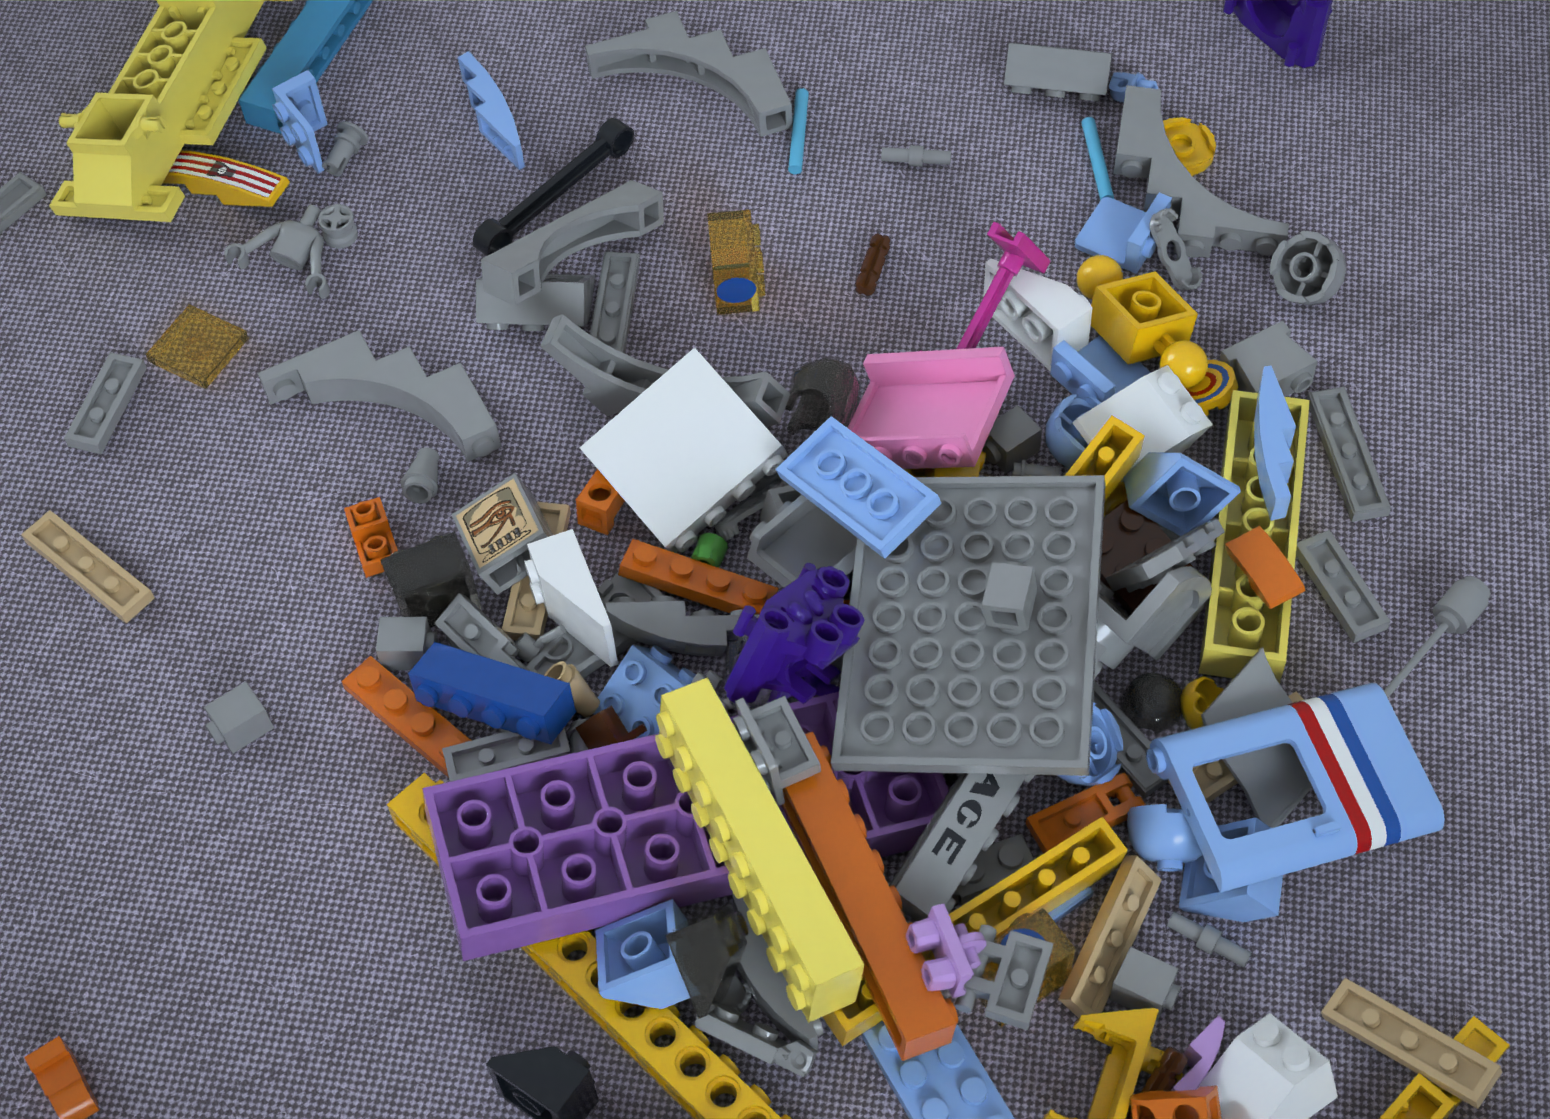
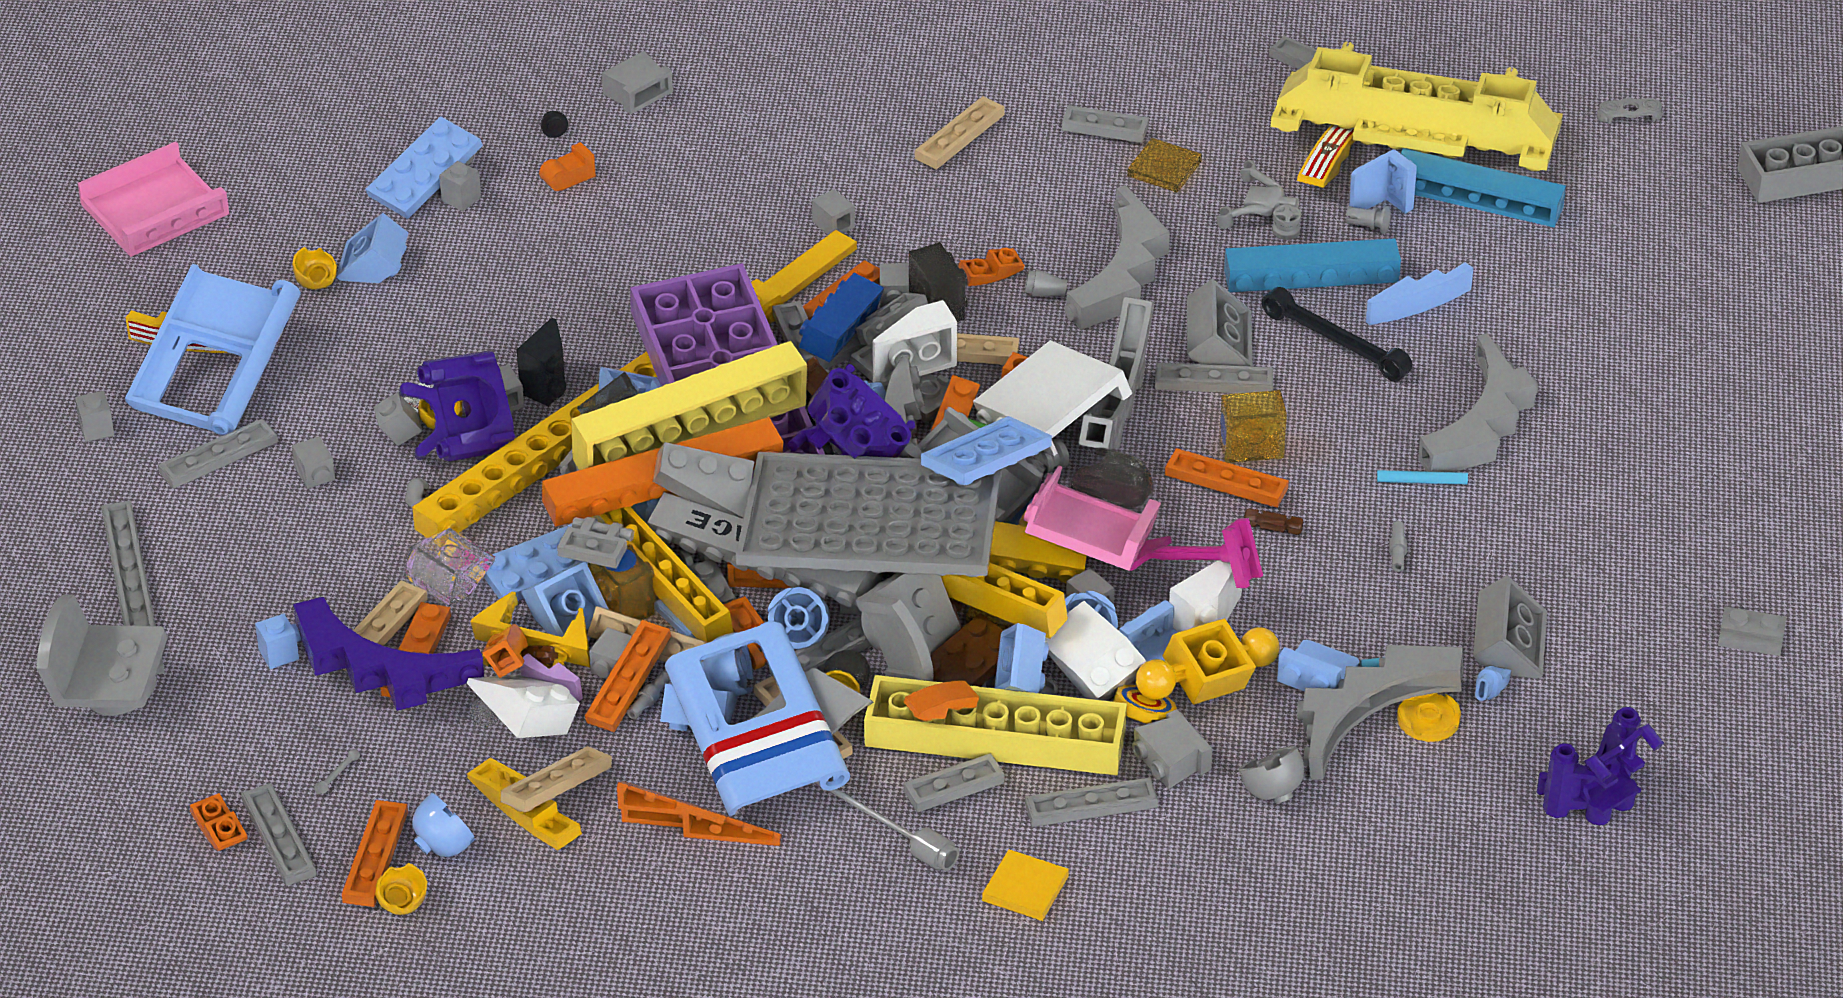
camera: 85 degrees right, 15 degrees down
(339, 752) = (812, 264): none -> yellow tile
(427, 207) = (1312, 265): none -> dark azure brick
(498, 531) = (987, 319): brick -> none
(521, 267) = (1299, 361): light grey arch -> none
(584, 698) = (852, 354): tan cone -> none
(776, 744) = (762, 406): light grey bracket -> none
(799, 303) = (1226, 477): none -> orange plate
(898, 820) = (705, 477): none -> light grey wedge
(953, 948) = (606, 499): lavender hips -> none
(1009, 596) = (875, 511): light grey brick -> none
(1045, 1058) = (557, 598): none -> light blue slope
(1171, 556) = (944, 640): light grey plate -> none
(1180, 270) = (1275, 703): light grey piece -> none
(1197, 958) = (628, 676): none -> orange plate
(1272, 440) = (1071, 708): light blue slope -> none
(1440, 901) = (654, 808): none -> orange wedge
(1493, 519) = (1025, 885): none -> yellow tile

